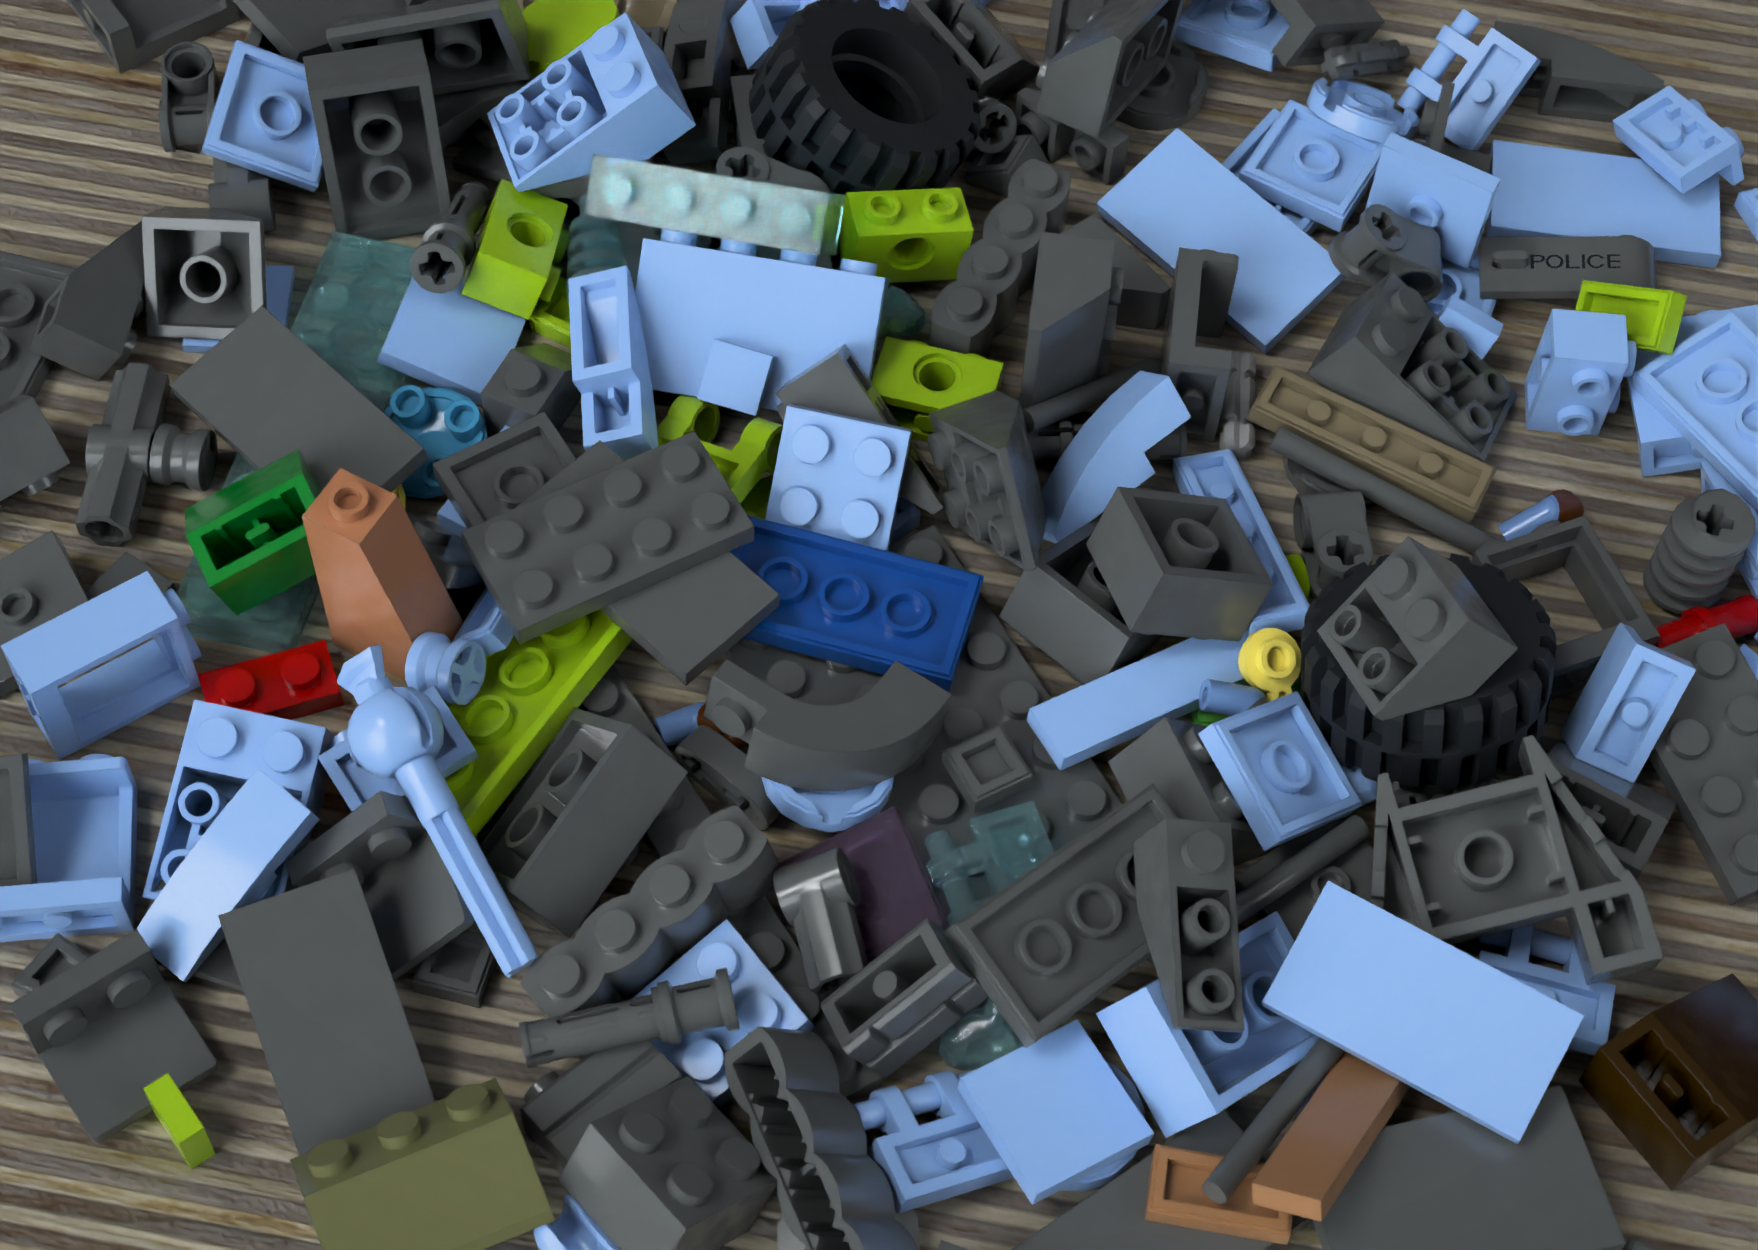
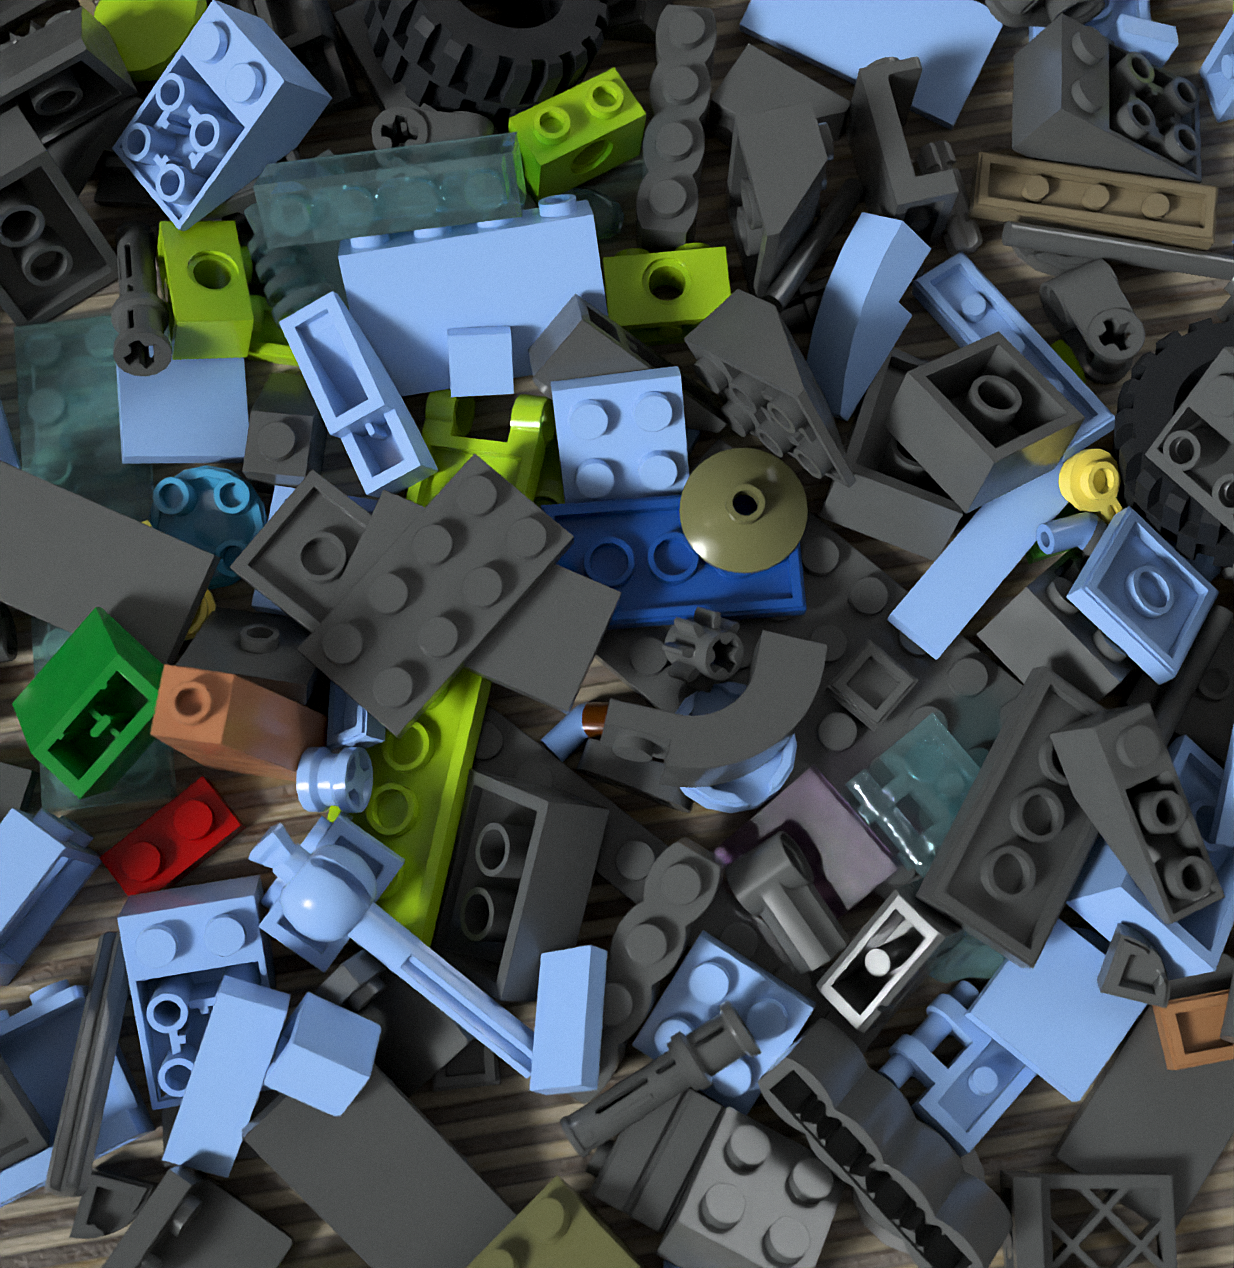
camera: 15 degrees left, 20 degrees up
(101, 835) = (90, 1071): none -> dark grey axle
(324, 868) = (323, 1055): none -> light blue panel
(567, 926) = (569, 1021): none -> light blue tile
(836, 670) = (703, 649): none -> dark grey gear
(923, 599) = (737, 540): none -> olive dish
(1140, 1090) = (1134, 969): none -> dark grey tile

